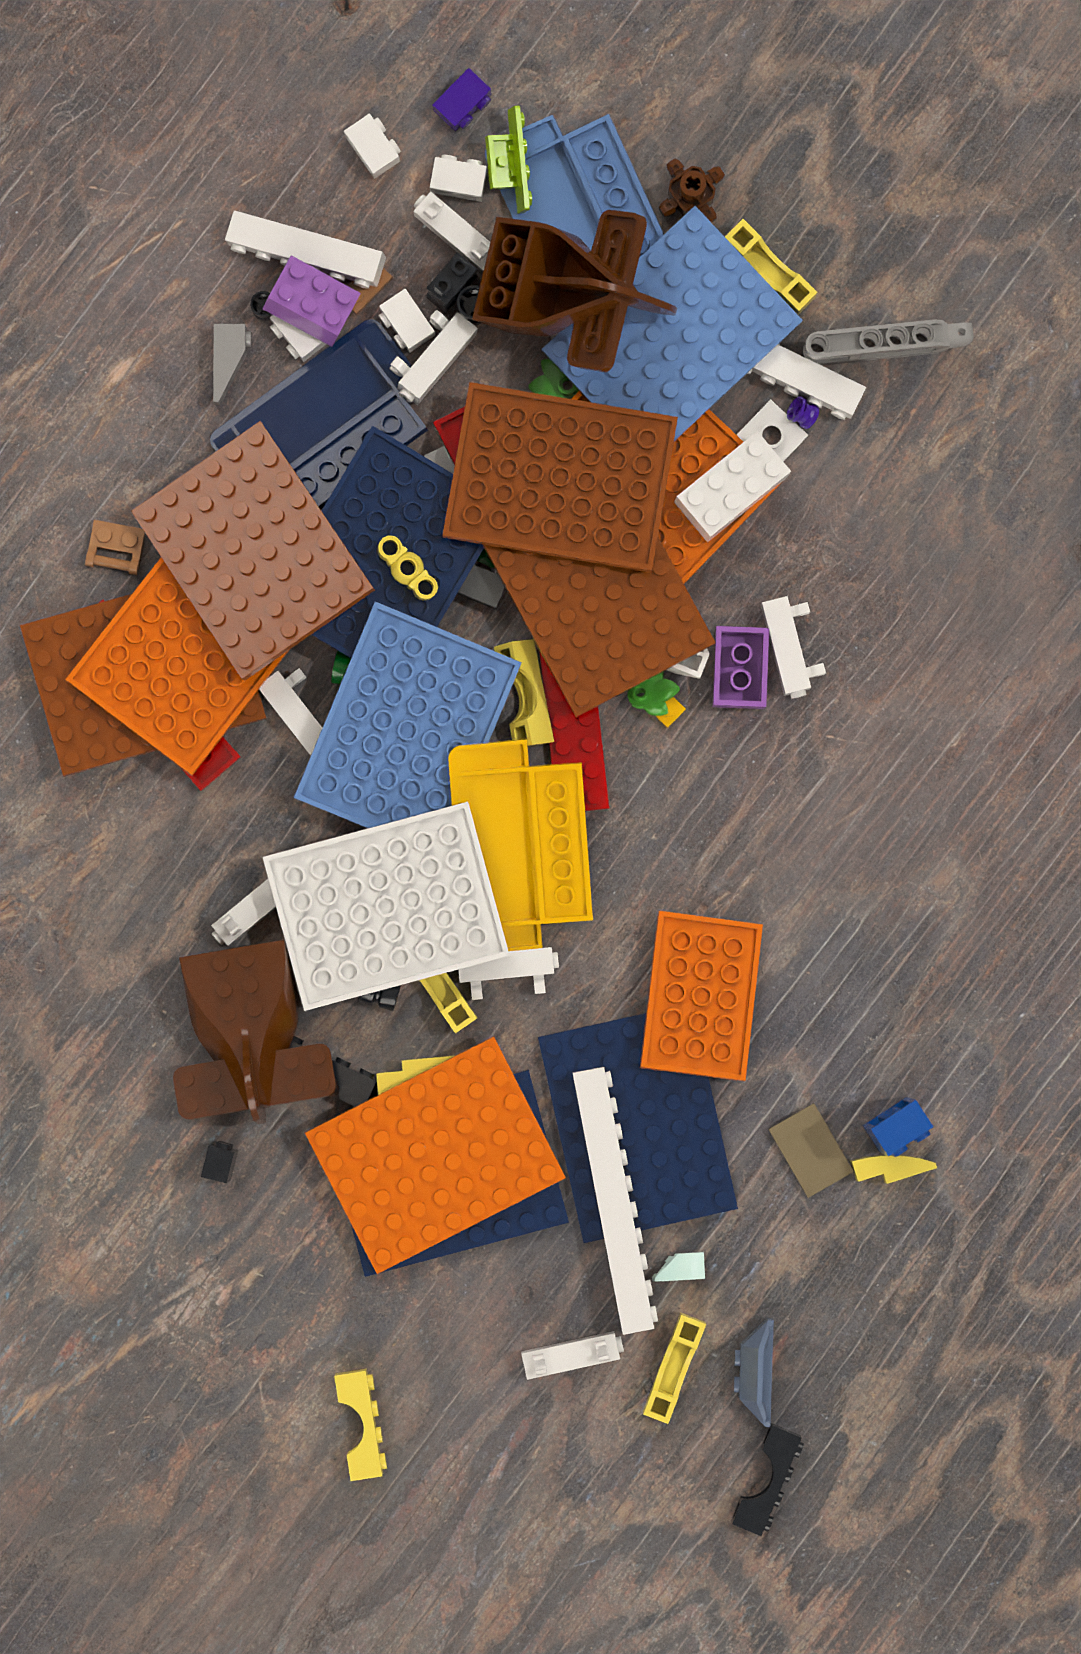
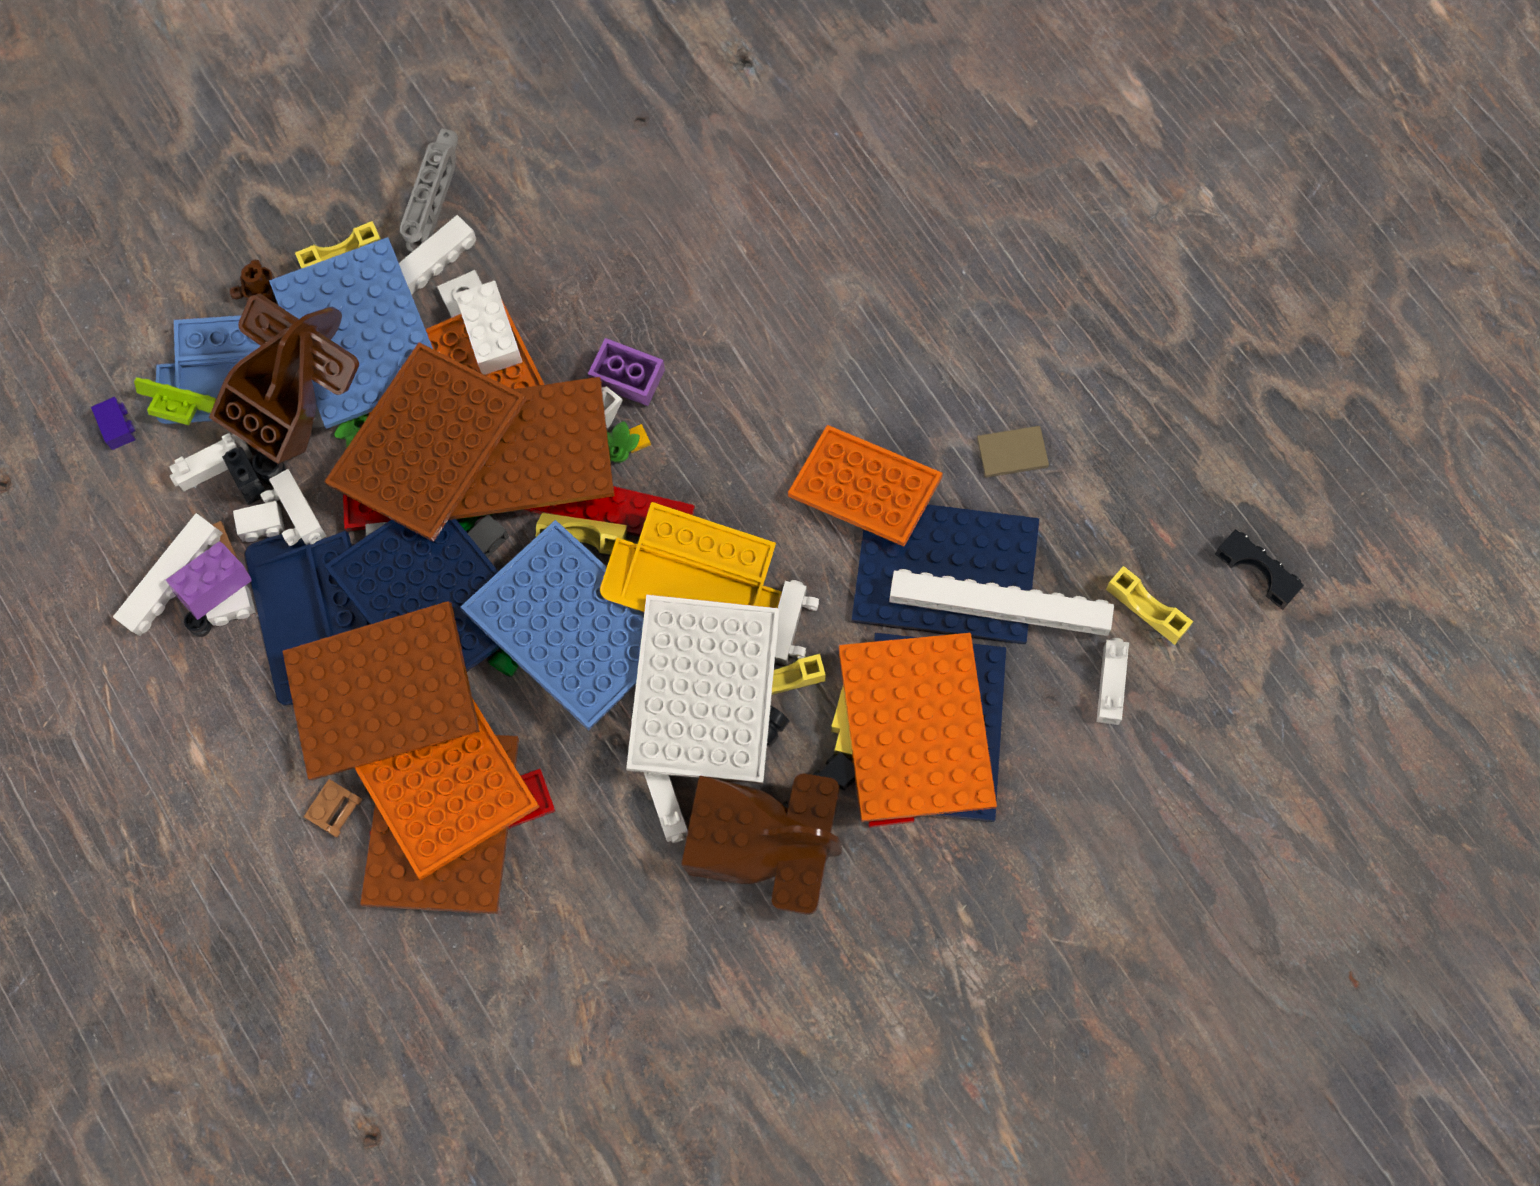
camera: 70 degrees left, 15 degrees down
(219, 1162) = (860, 900): black brick -> none
(229, 353) = (219, 662): light grey slope -> none
(291, 708) = (522, 713): white brick -> none
(355, 1390) = (1143, 872): light yellow arch -> none
(372, 145) = (115, 499): white brick -> none
(402, 555) = (434, 577): light yellow piece -> none
(458, 178) = (170, 445): white brick -> none
(682, 1267) = (1071, 574): light aqua slope -> none
(755, 1371) = (1171, 548): sand blue wedge -> none
(786, 646) = (643, 338): white brick -> none
(802, 412) = (456, 266): dark purple wheel -> none
(890, 1167) = (1046, 398): light yellow slope -> none
(898, 1127) = (1018, 370): blue brick -> none

